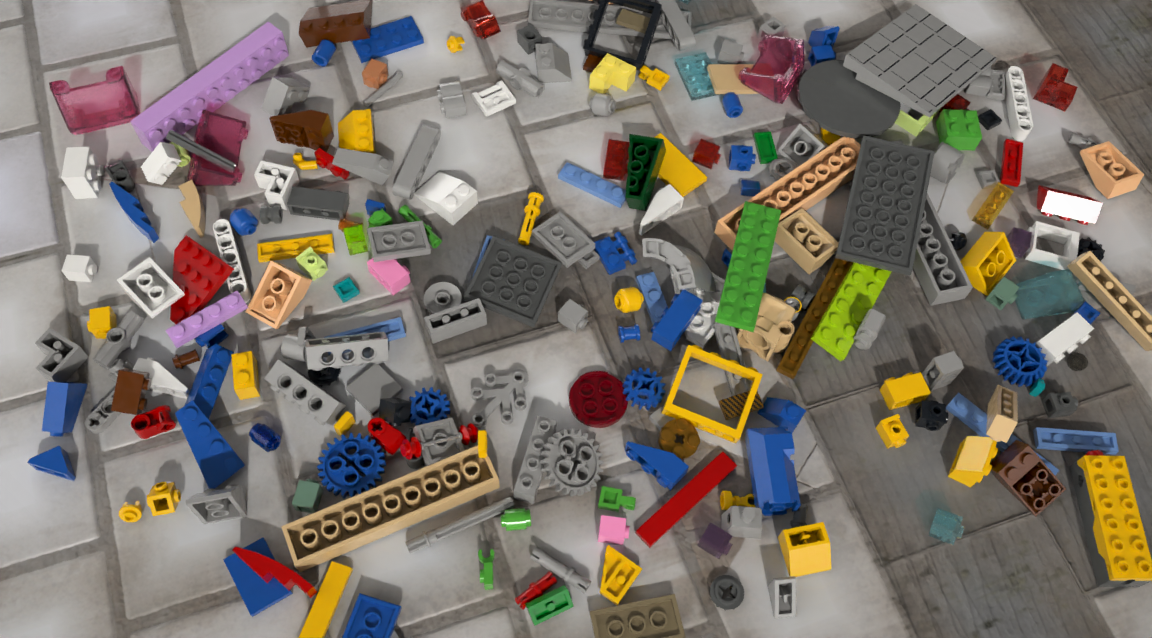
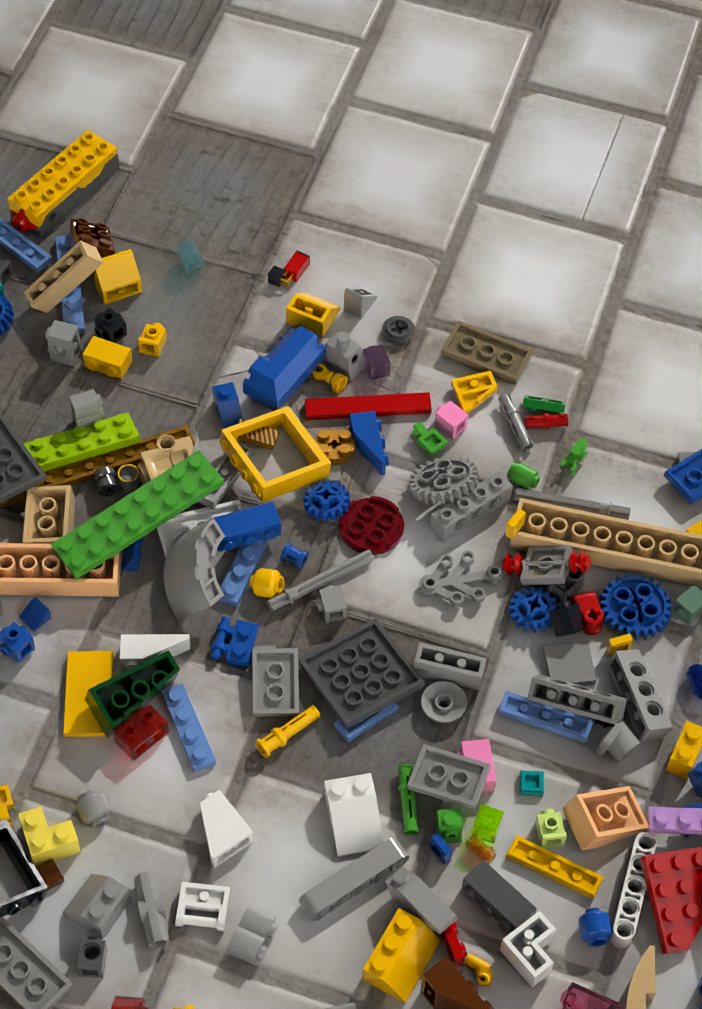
camera: 140 degrees left, 5 degrees down
(271, 214) = (559, 919): dark grey wheel -> none
(519, 140) = (223, 828): none -> white slope
(596, 330) = (294, 593): none -> light grey axle
(706, 154) = (43, 674): clear red brick -> none
(862, 587) = (293, 270): none -> piece

